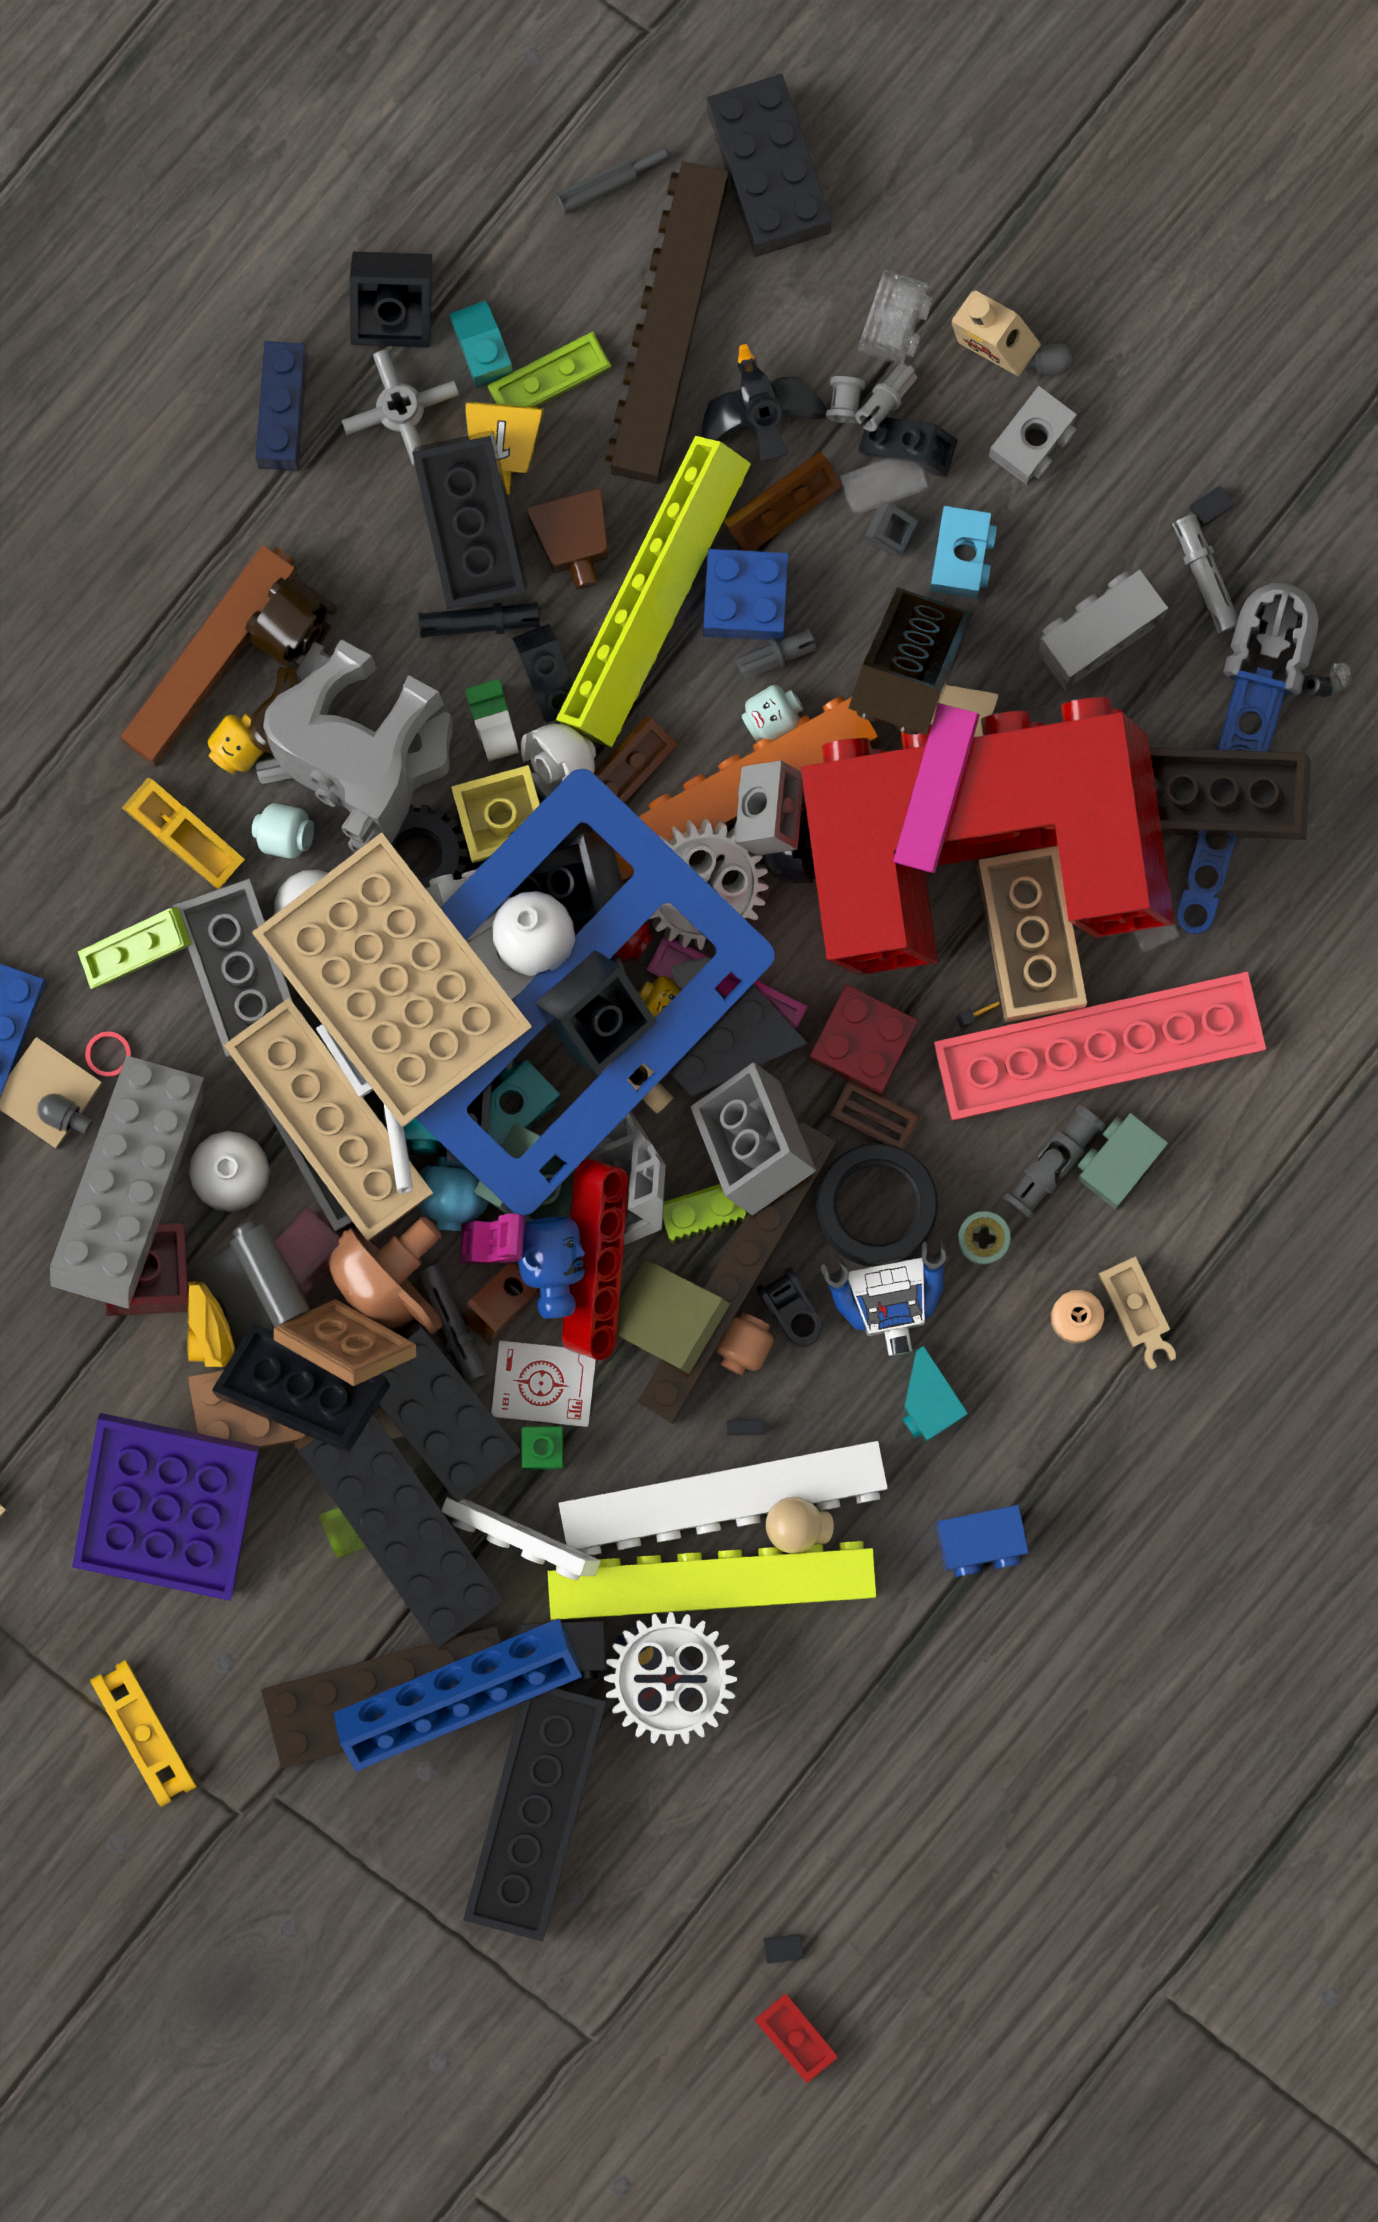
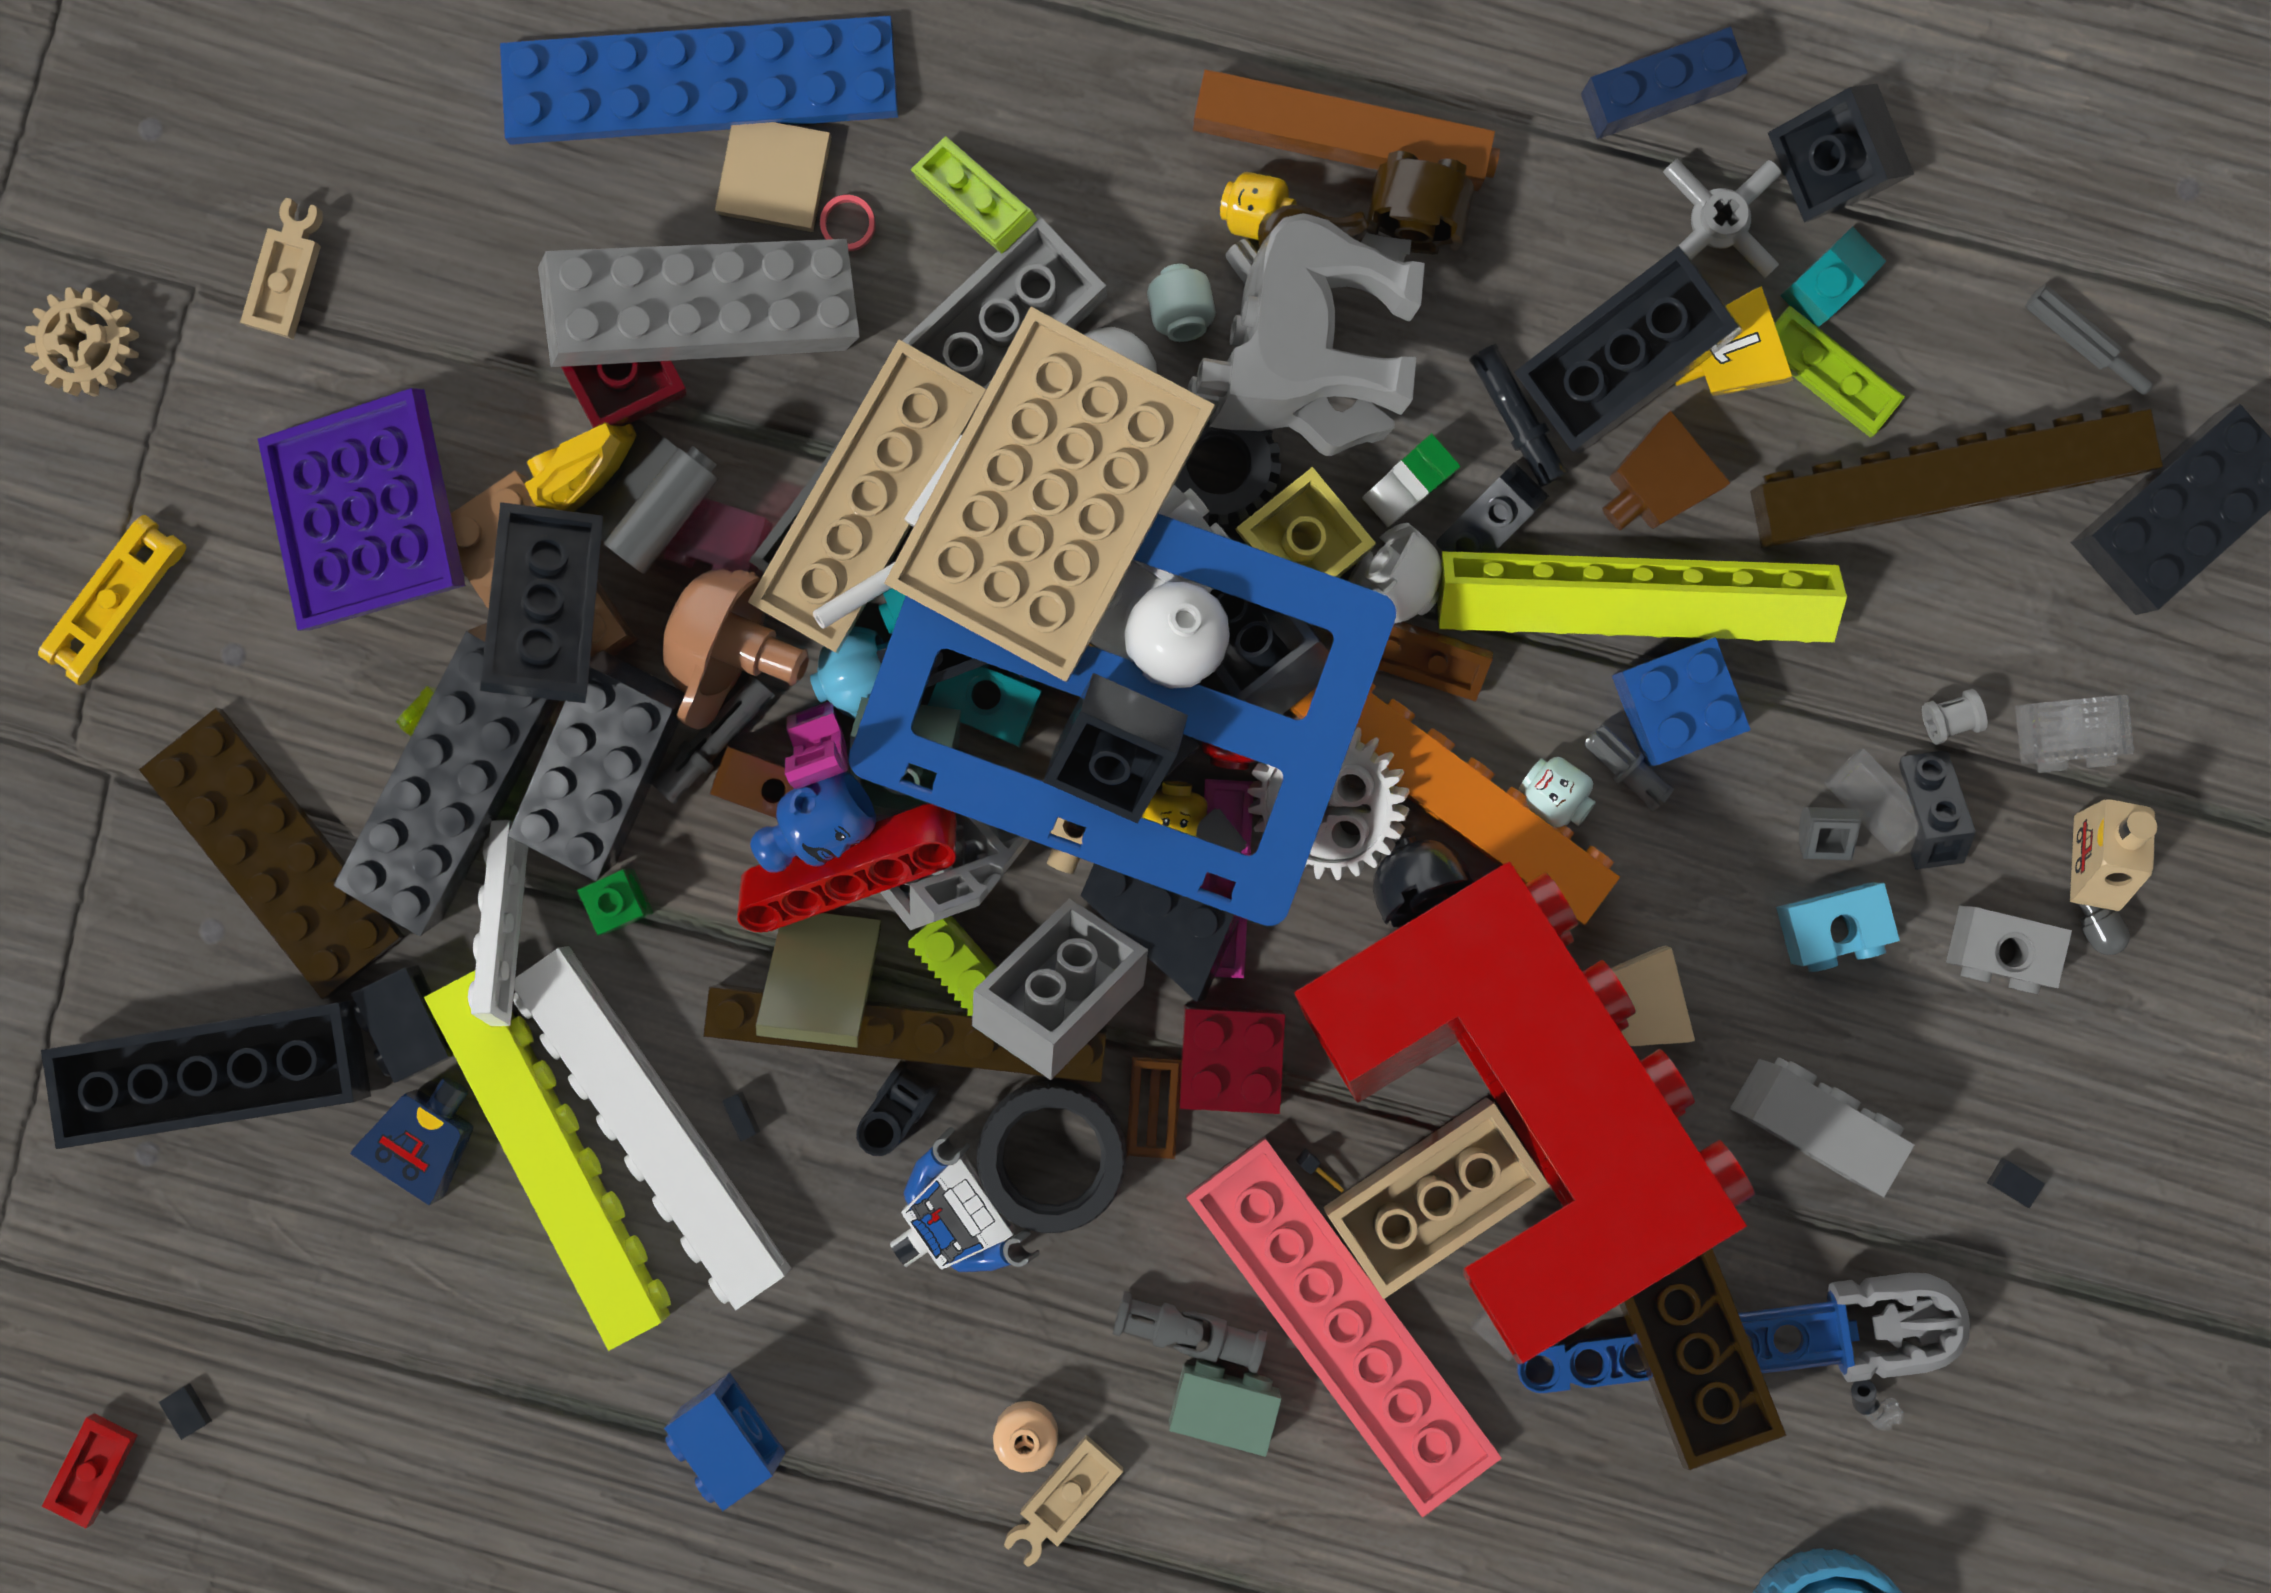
camera: 65 degrees right, 5 degrees up
(62, 1114) = (753, 199): dark grey cylinder -> none
(183, 833) = (1129, 192): yellow slope -> none
(229, 1171) = (774, 415): white cylinder -> none
(344, 1342) = (613, 629): medium nougat tile -> none
(457, 1695) = (284, 932): blue brick -> none
(542, 1384) = (692, 867): white sticker -> none
(670, 1640) = (367, 1182): white gear -> none
(745, 1344) = (830, 1078): nougat head -> none
(760, 406) = (1904, 624): black animal -> none
(769, 808) = (1447, 840): light grey brick -> none
(783, 503) = (1804, 698): reddish brown plate -> none
(798, 1525) = (648, 1228): tan piece -> none
(887, 396) = (1979, 762): light grey axle -> none
(910, 662) = (1686, 933): dark brown brick -> none
(929, 1399) = (860, 1310): teal slope -> none
(936, 788) = (1555, 1037): dark pink tile -> none
(996, 1229) = (1057, 1308): piece -> none
(1203, 566) = (1943, 1205): light grey pin -> none

